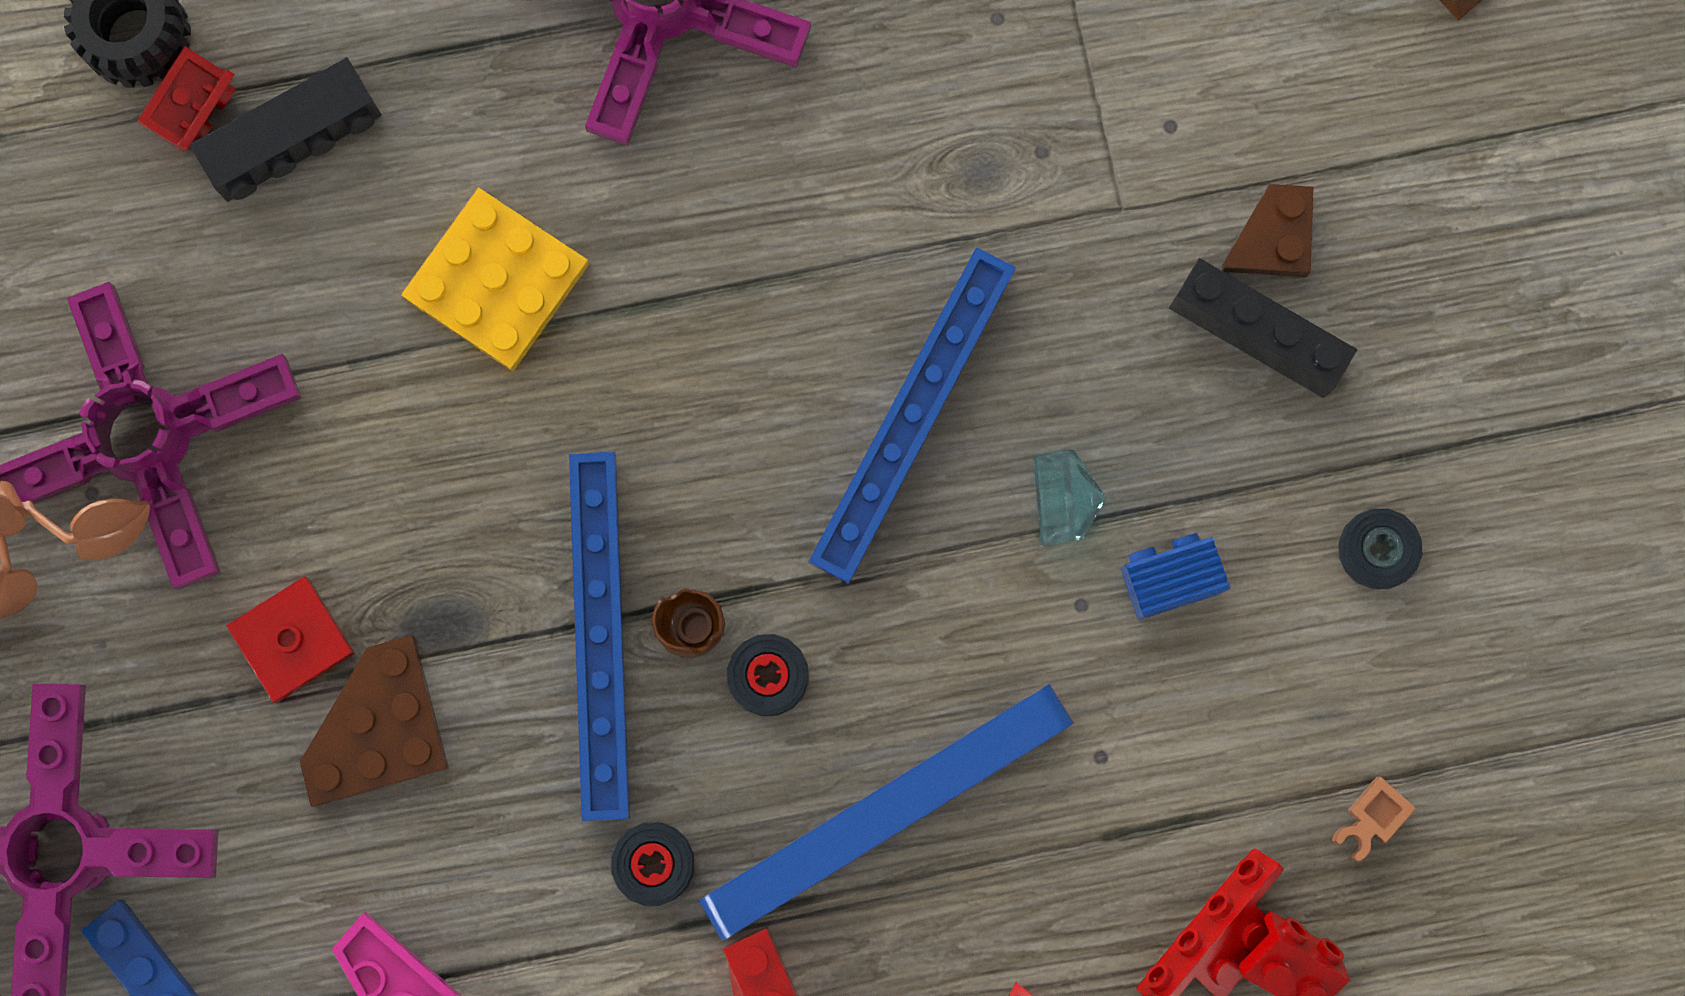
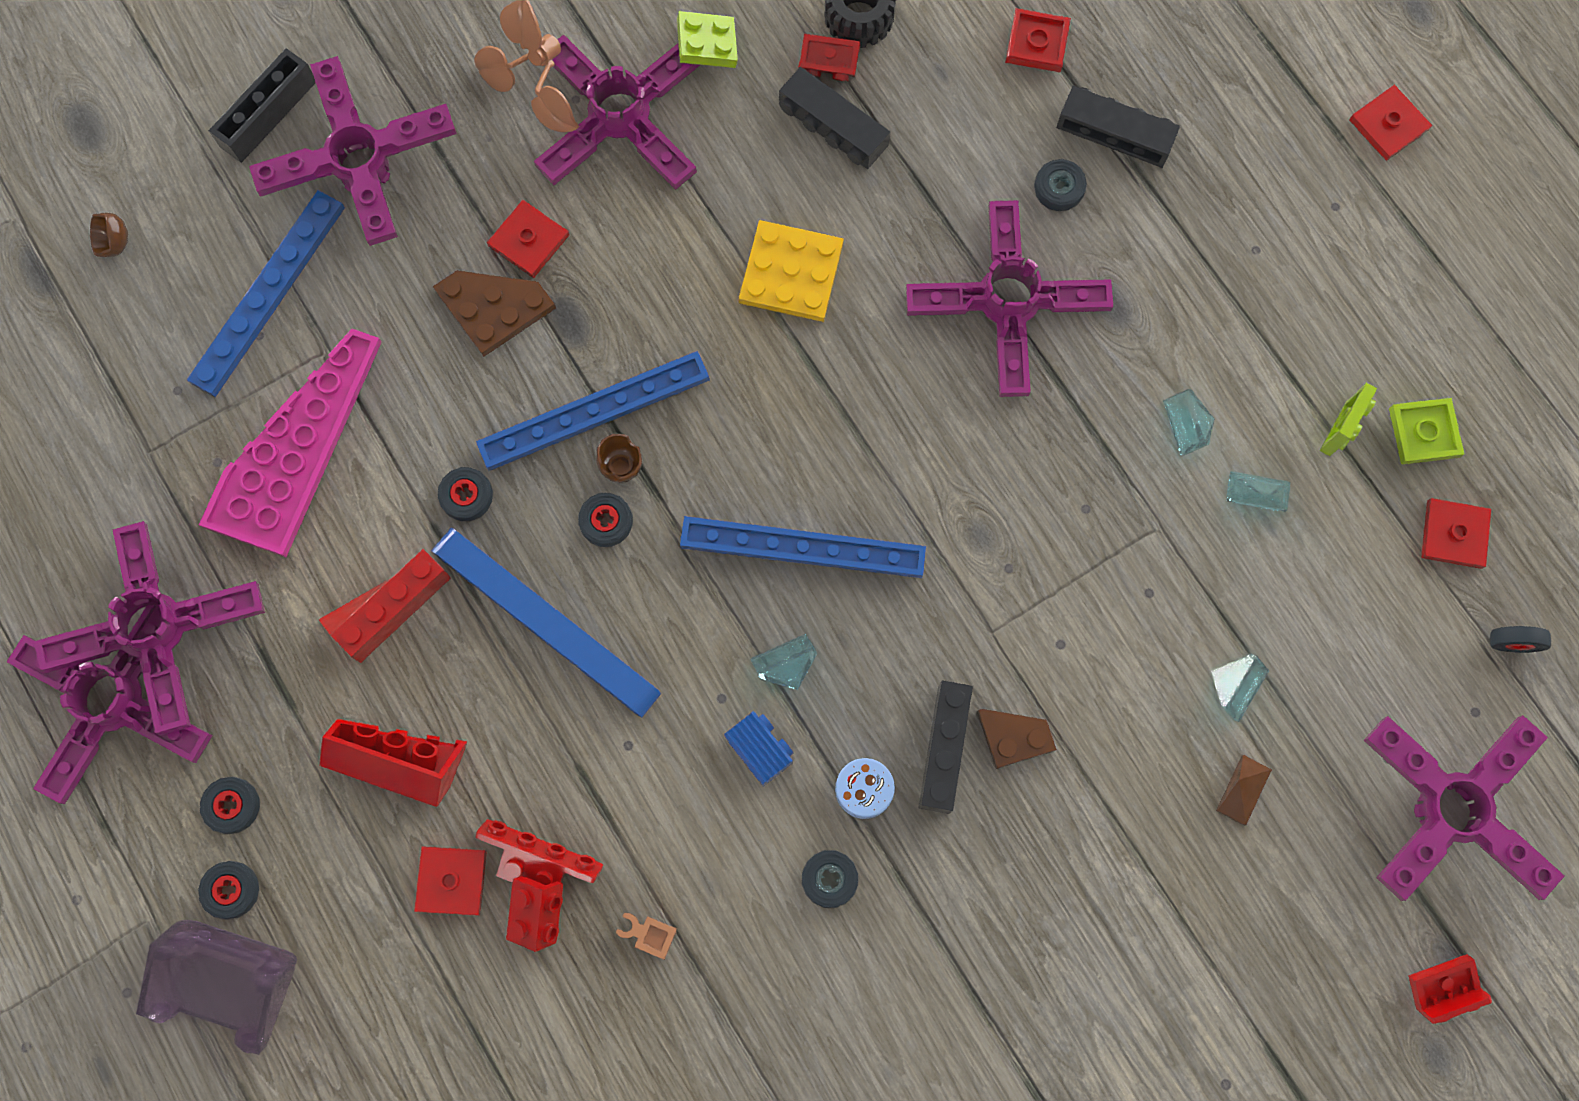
camera: 70 degrees right, 5 degrees down
(83, 264) = (707, 39): none -> lime plate
(1278, 456) = (864, 788): none -> light blue head

